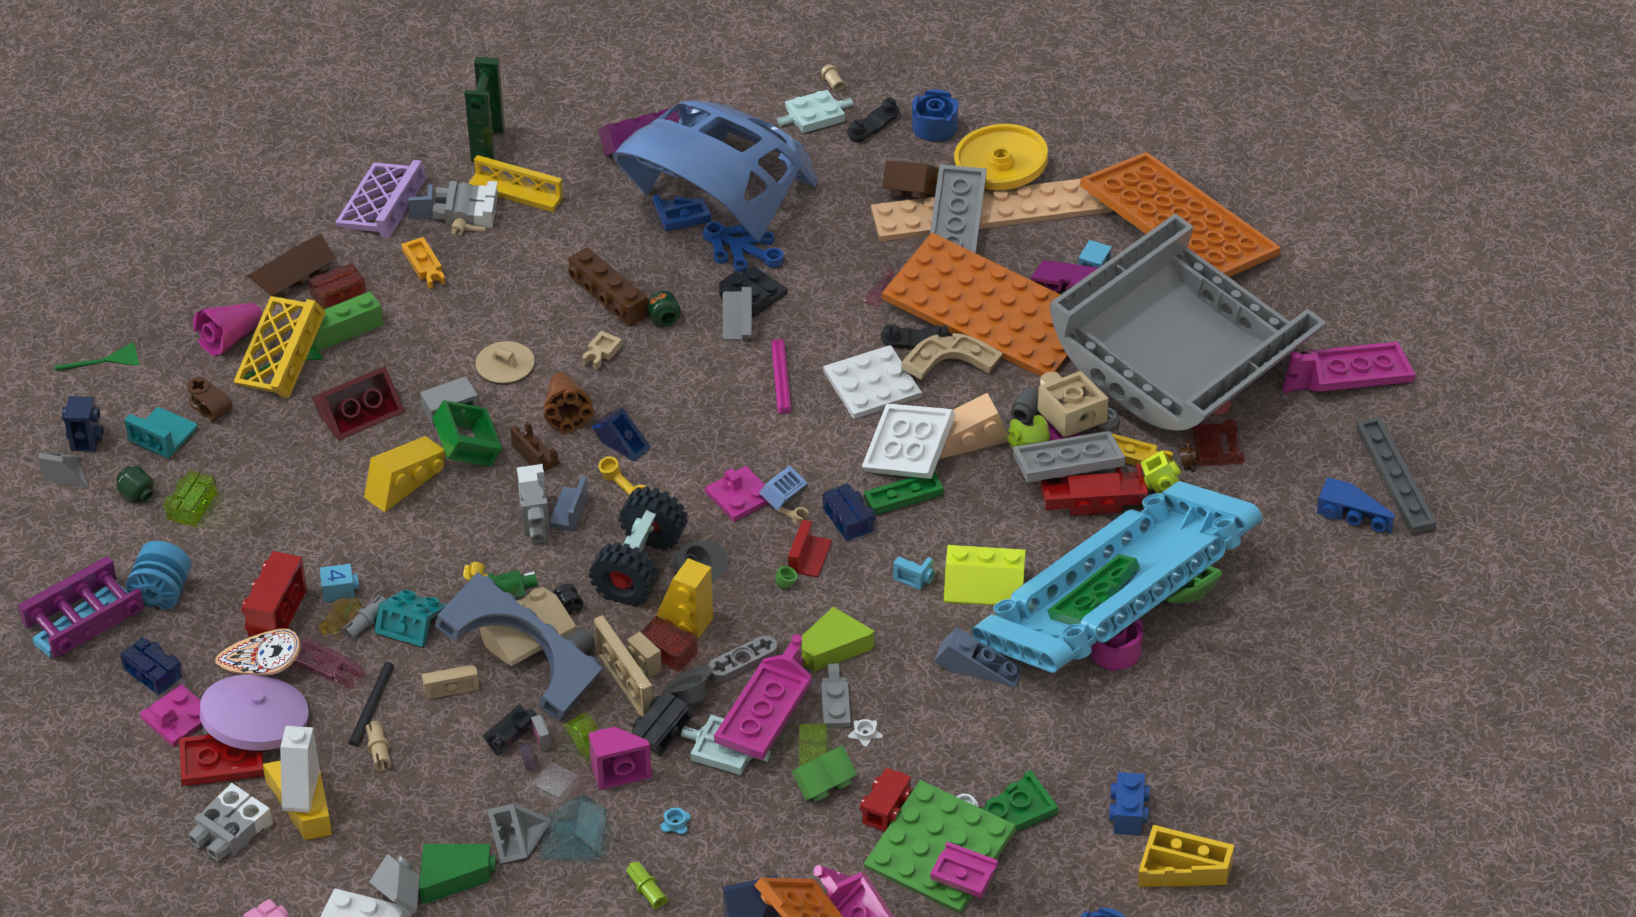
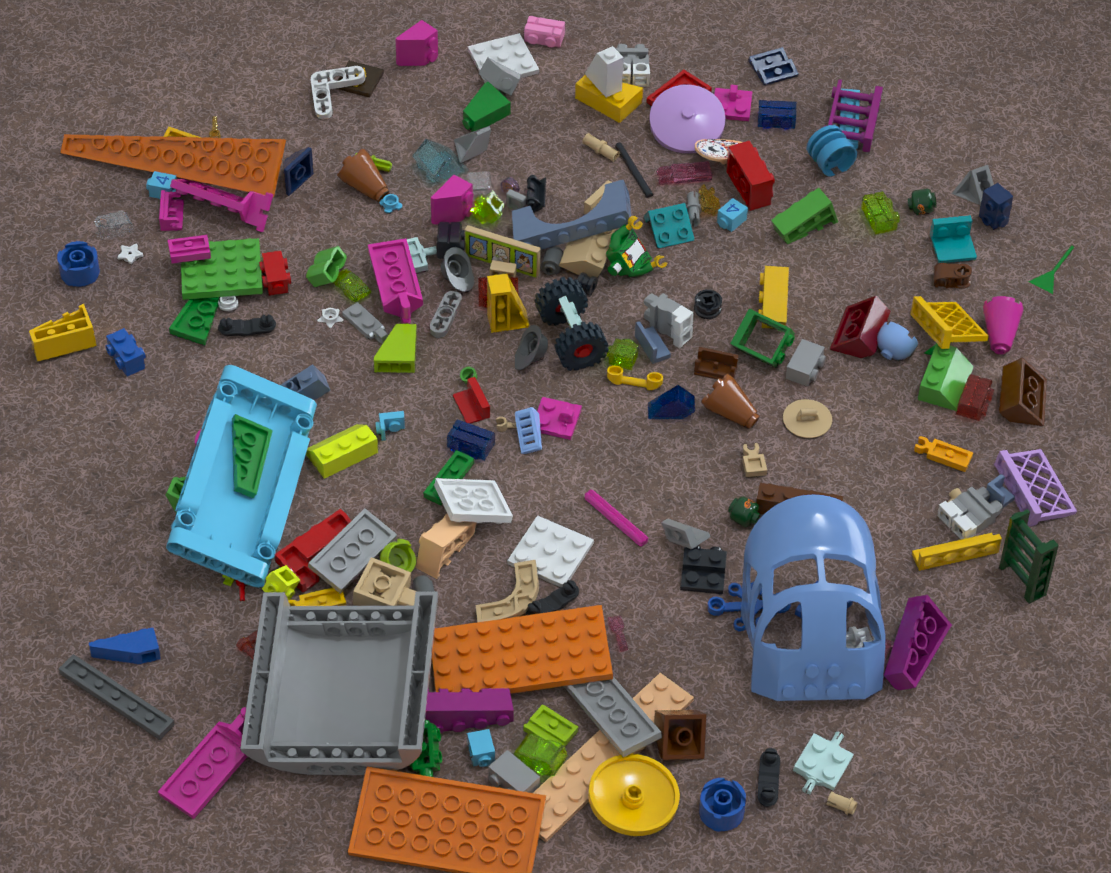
camera: 140 degrees right, 5 degrees up
(79, 724) = (773, 66): none -> slope
(273, 528) = (805, 216): none -> bright green wedge
(346, 362) = (895, 342): none -> light blue cylinder
(471, 510) = (707, 304): none -> black wheel
(607, 507) = (623, 353): none -> clear neon green brick
(679, 861) = (363, 175): none -> dark orange cone
(966, 766) = (240, 327): none -> black piece
(1018, 246) = (550, 726): none -> lime plate
(1049, 225) = (541, 754): none -> clear neon green brick
(1087, 223) = (512, 774): none -> light grey brick

